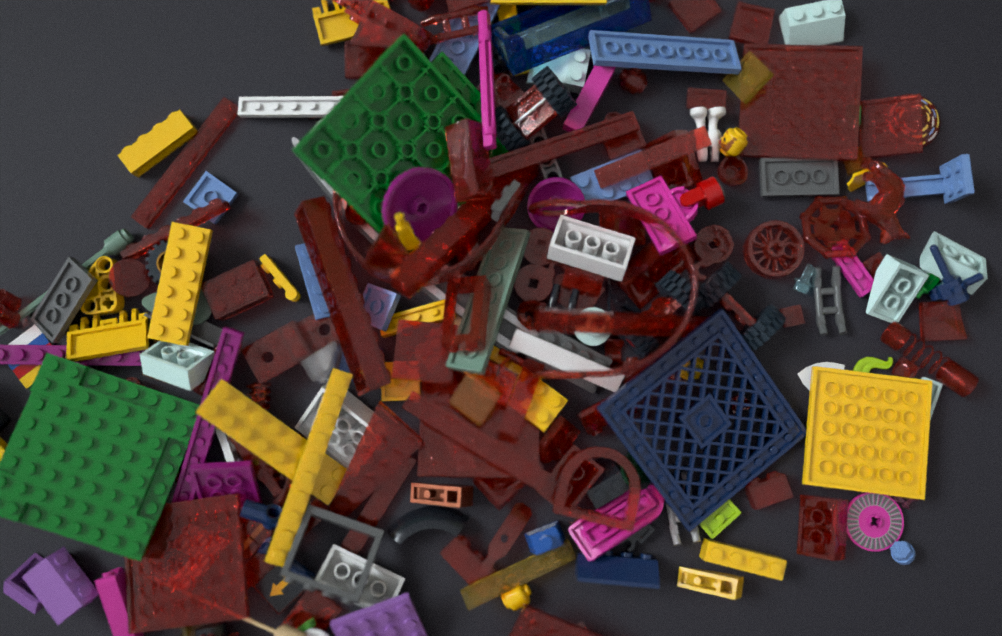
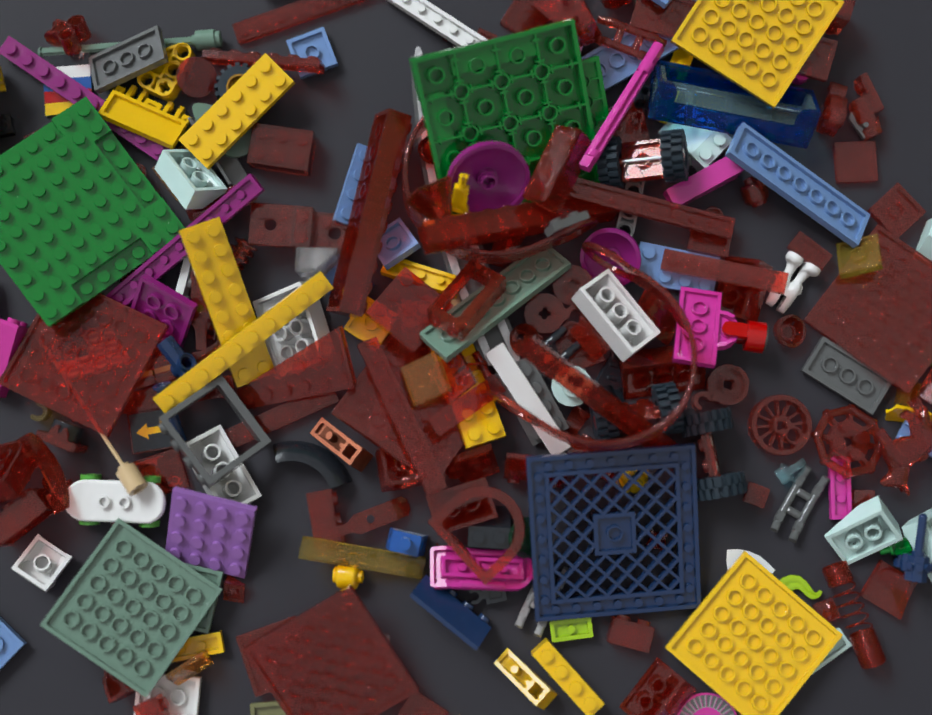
camera: 35 degrees right, 0 degrees up
(280, 279) = (325, 164): yellow plate -> none
(733, 142) = (806, 305): yellow head -> none

